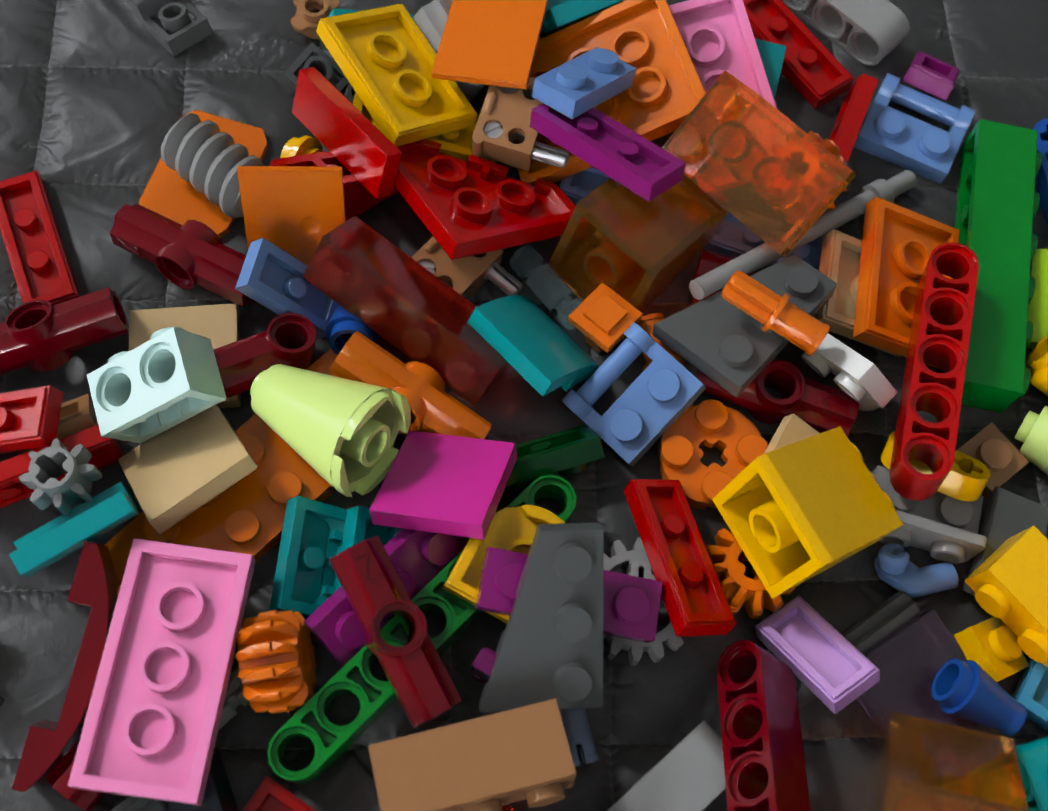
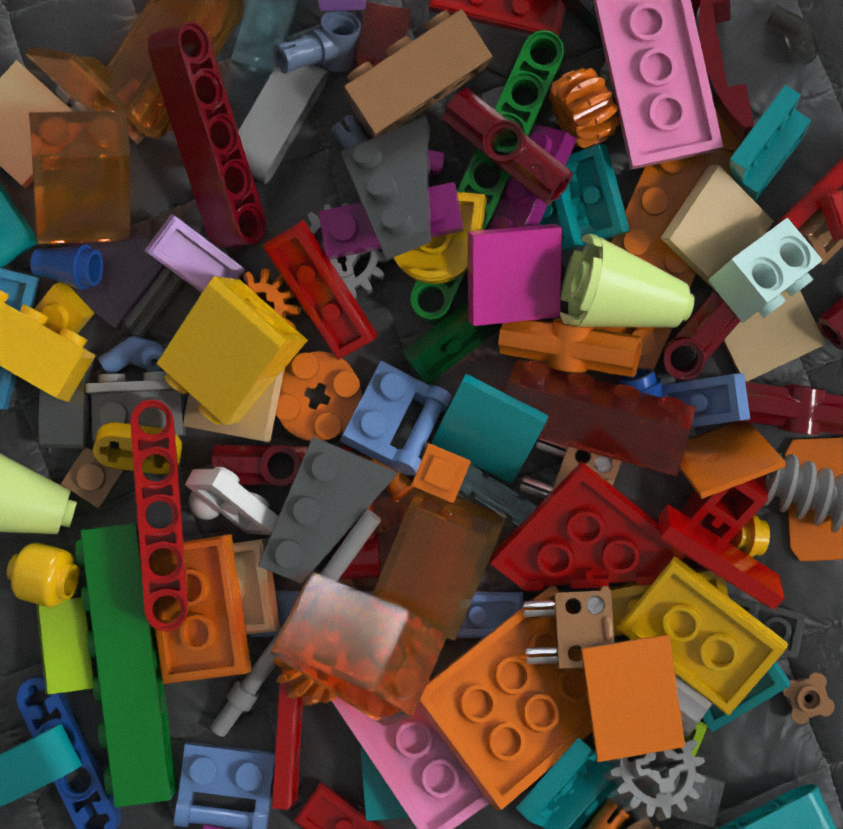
camera: 170 degrees right, 20 degrees up
(50, 464) = (811, 170): light grey gear -> none
(584, 82) = (532, 673): medium blue plate -> none
(611, 149) = (491, 612): magenta plate -> none
(775, 312) = (303, 504): orange axle -> none

